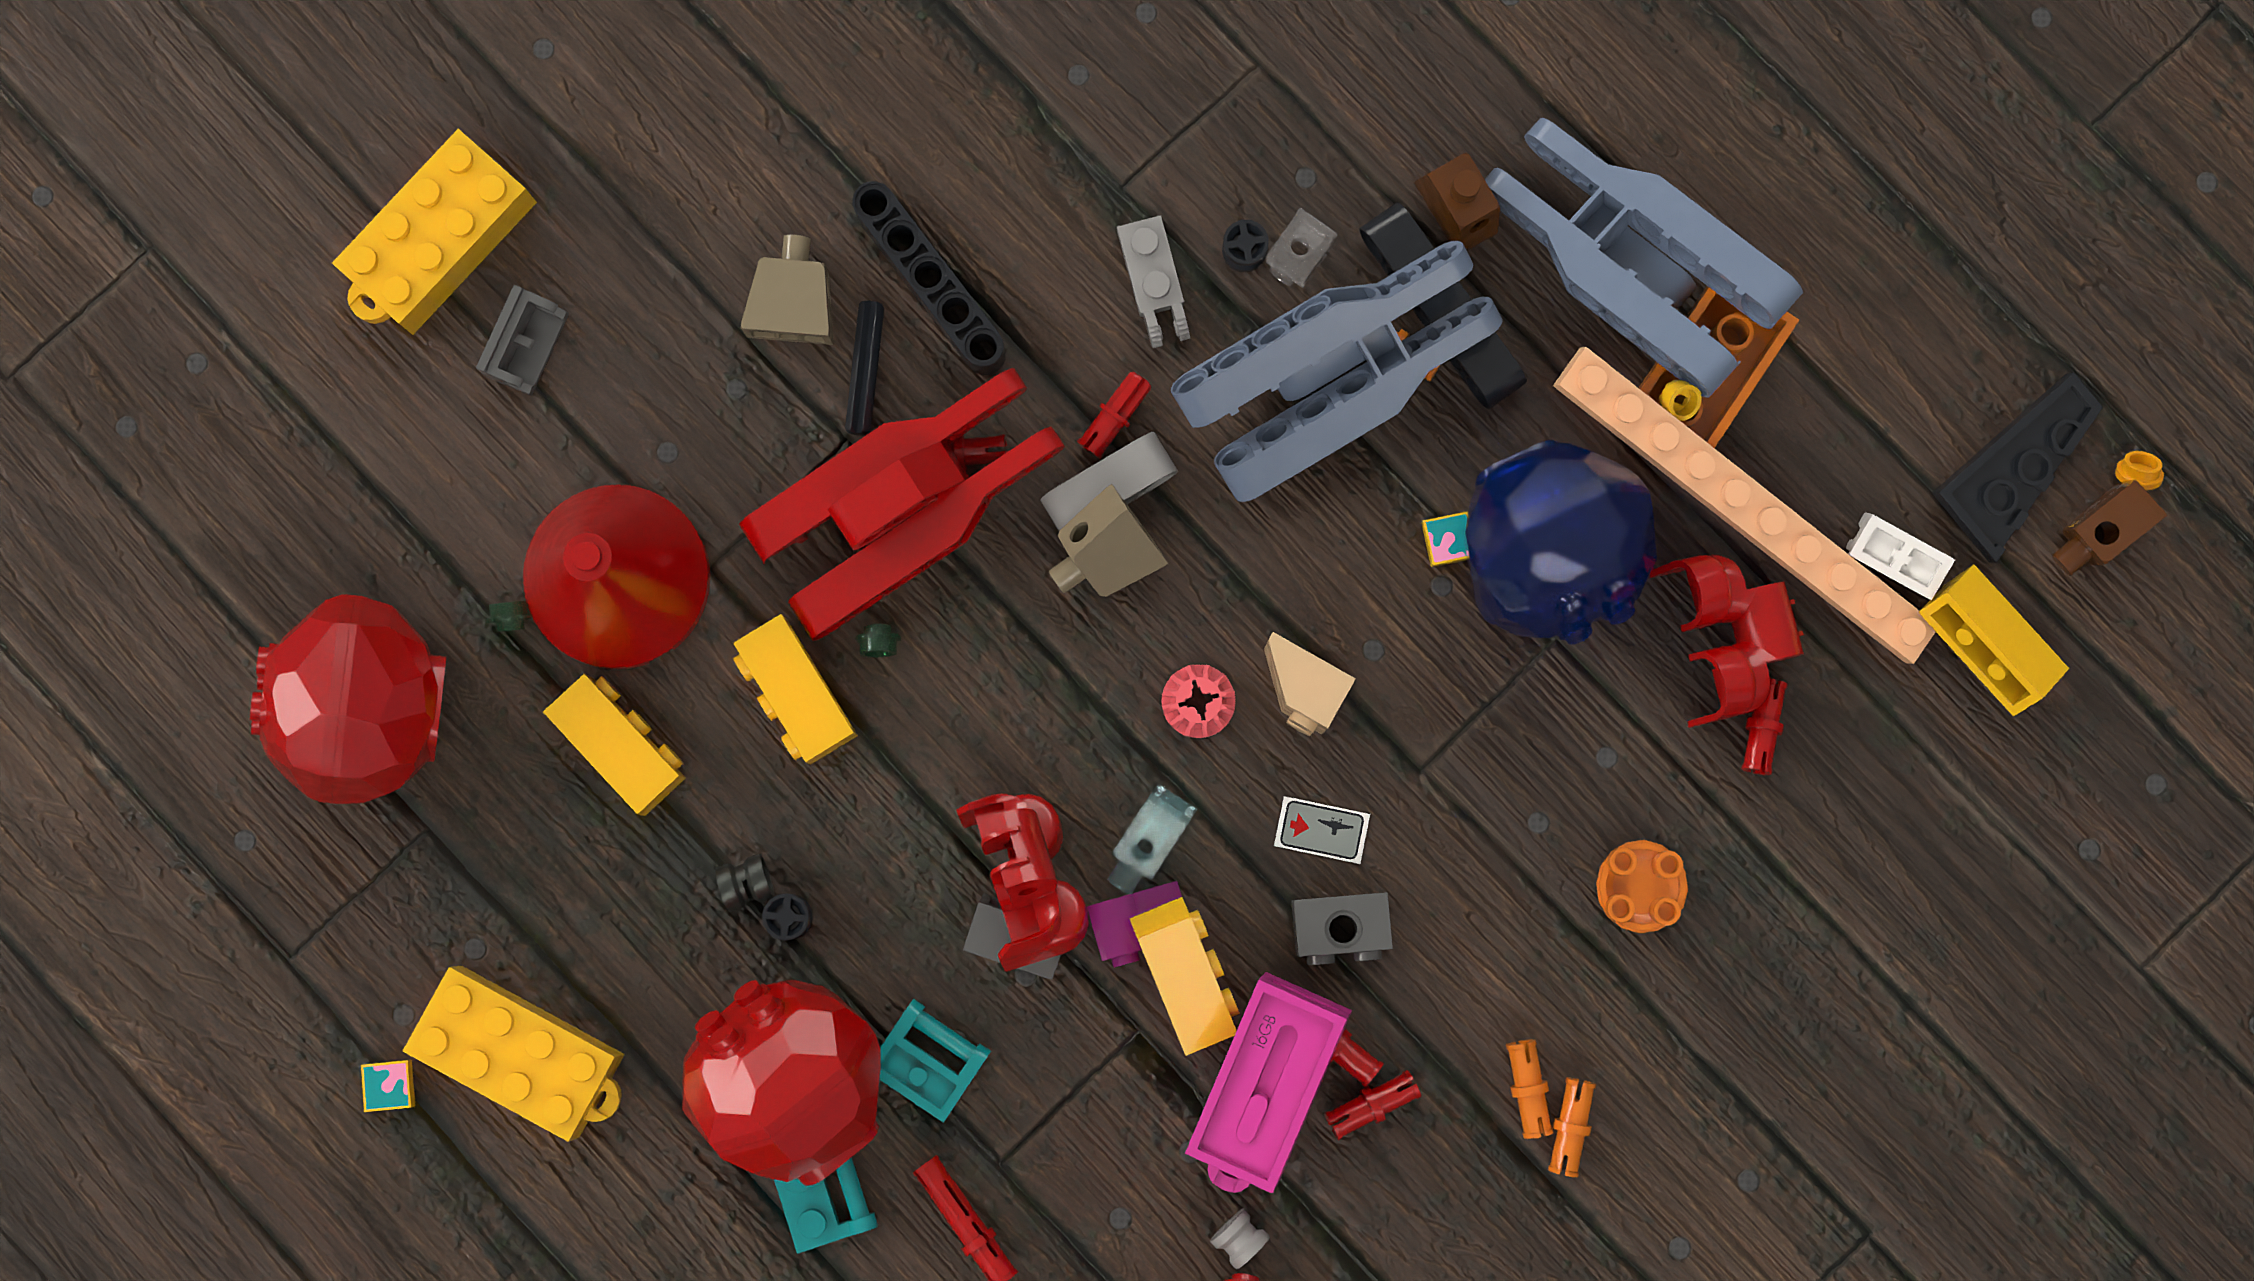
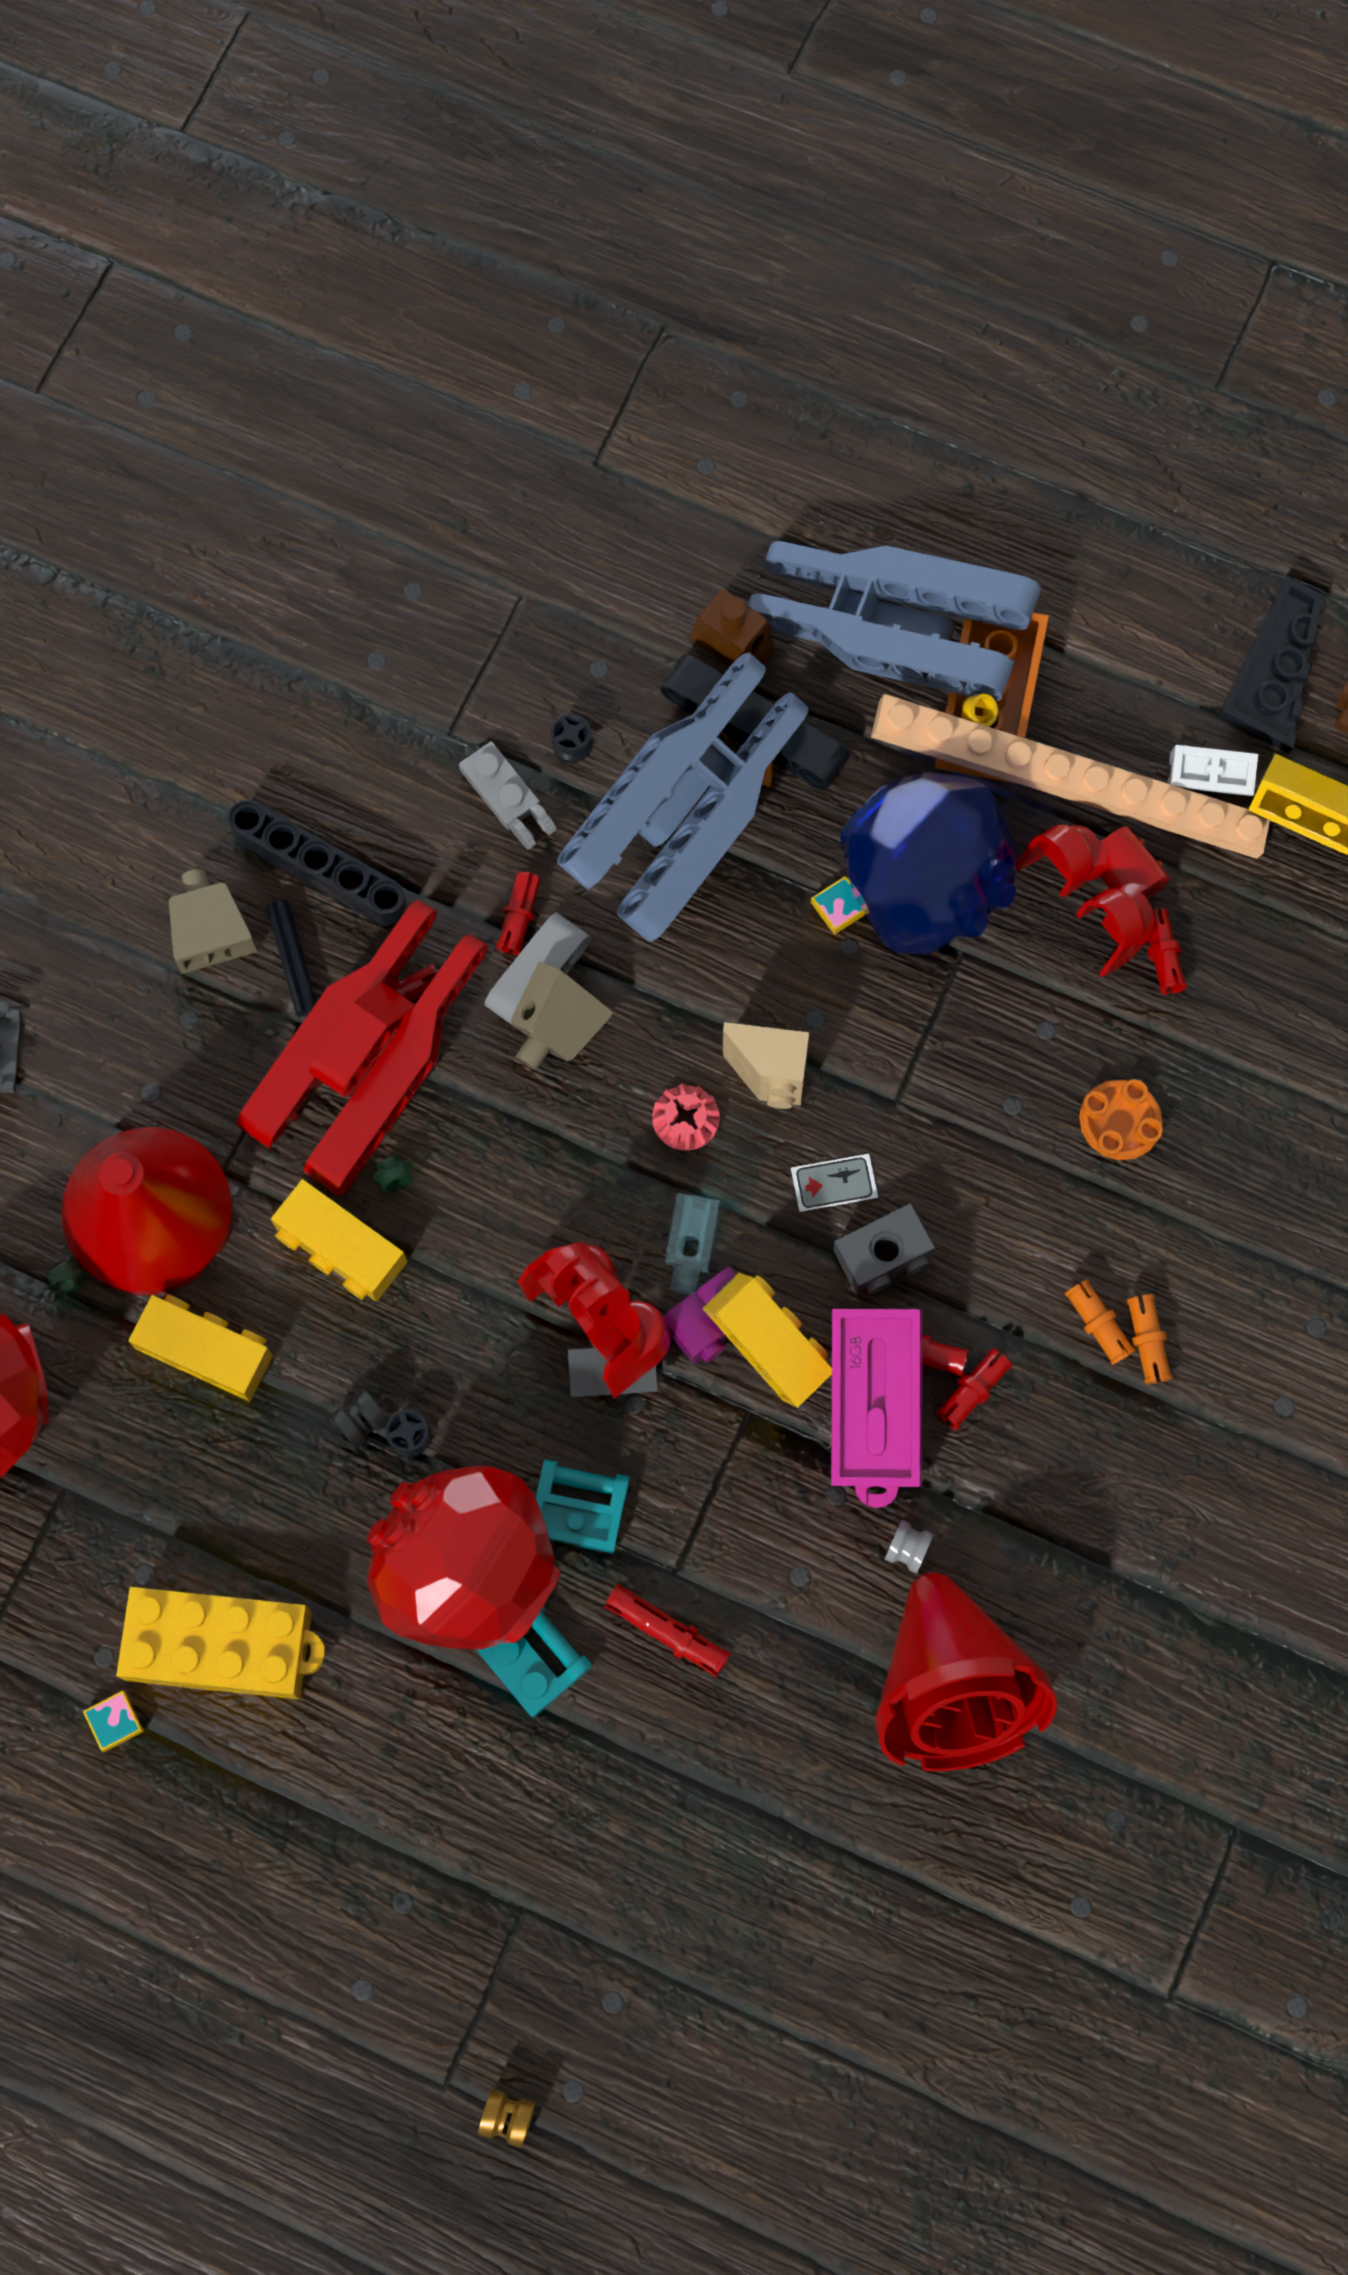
camera: 20 degrees left, 10 degrees down
(1299, 268) = (619, 707): clear brick -> none

